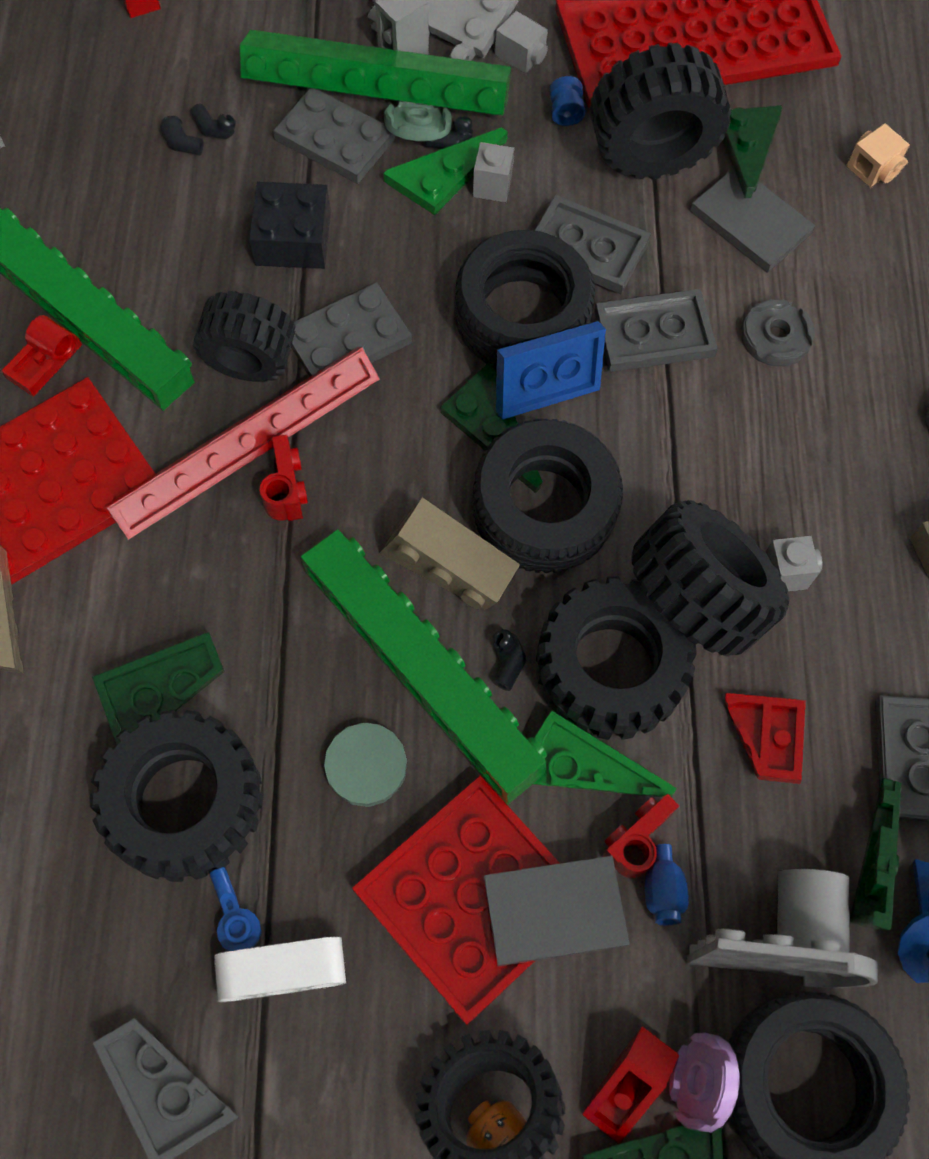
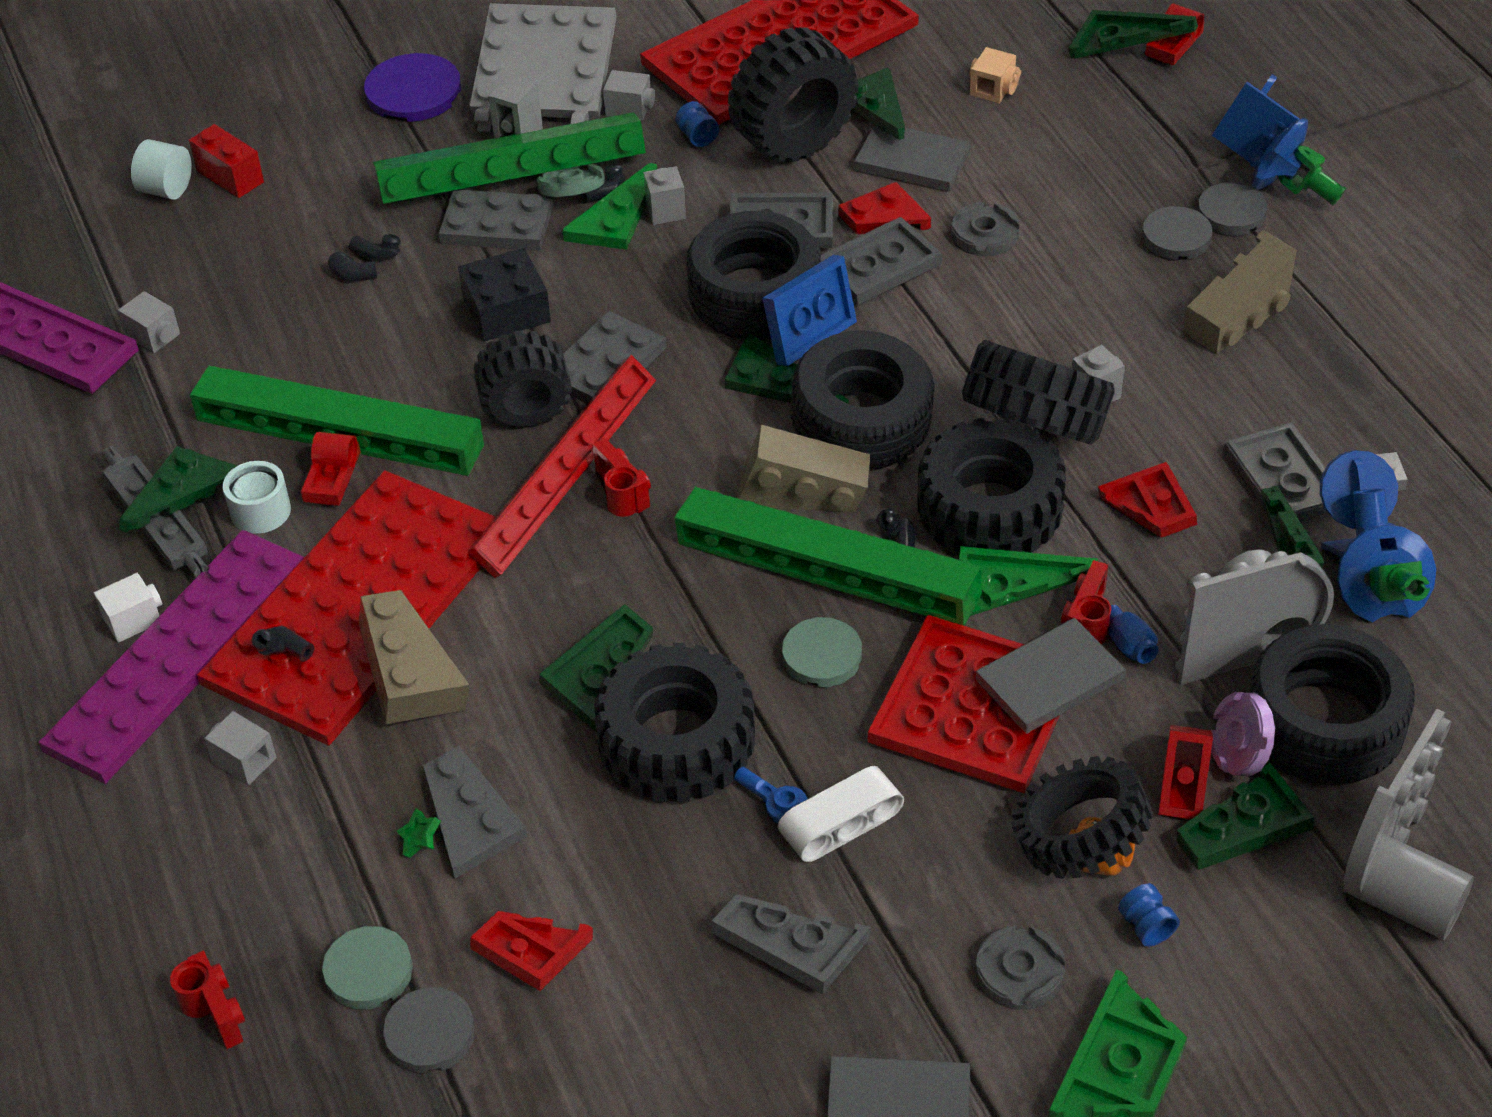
camera: 20 degrees left, 20 degrees down
(691, 269) = (882, 207): none -> red wing

